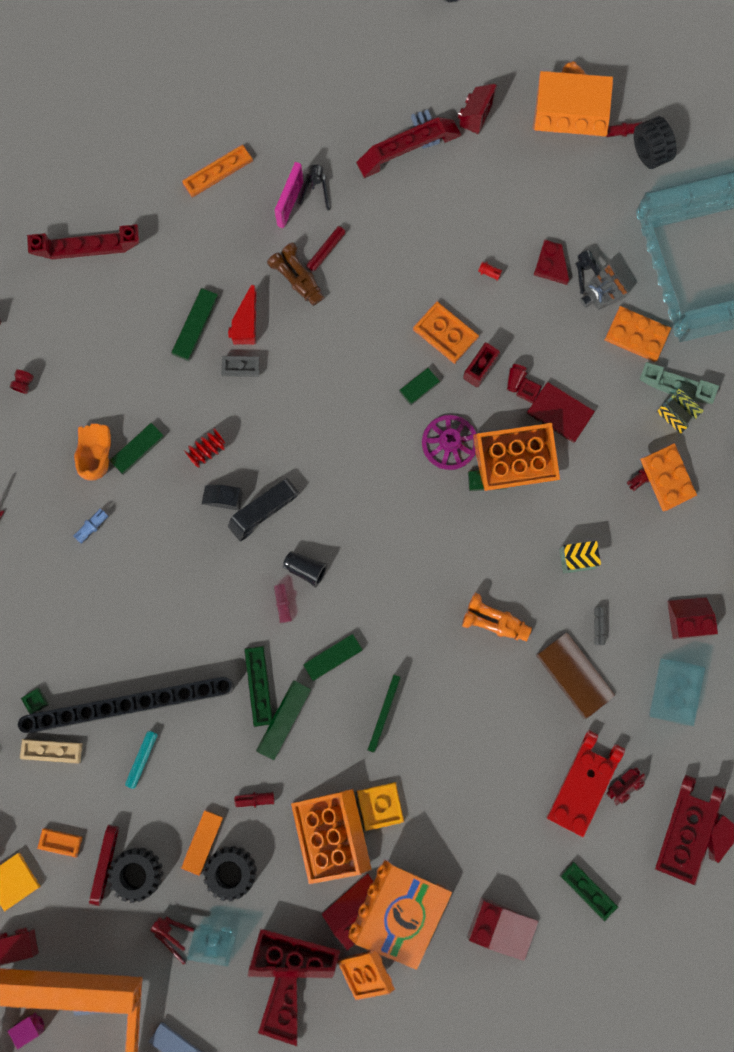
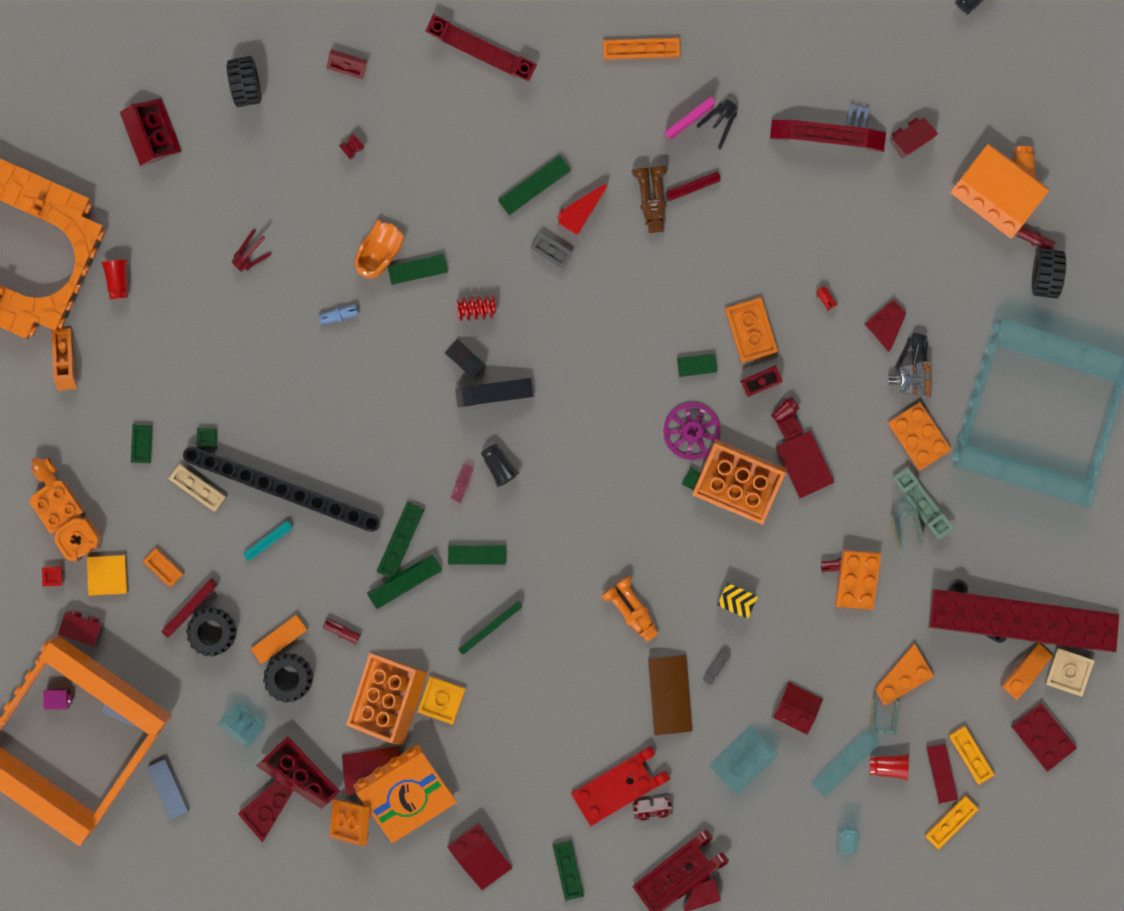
camera: 30 degrees right, 10 degrees up
(162, 929) = (207, 688): dark red plant -> none

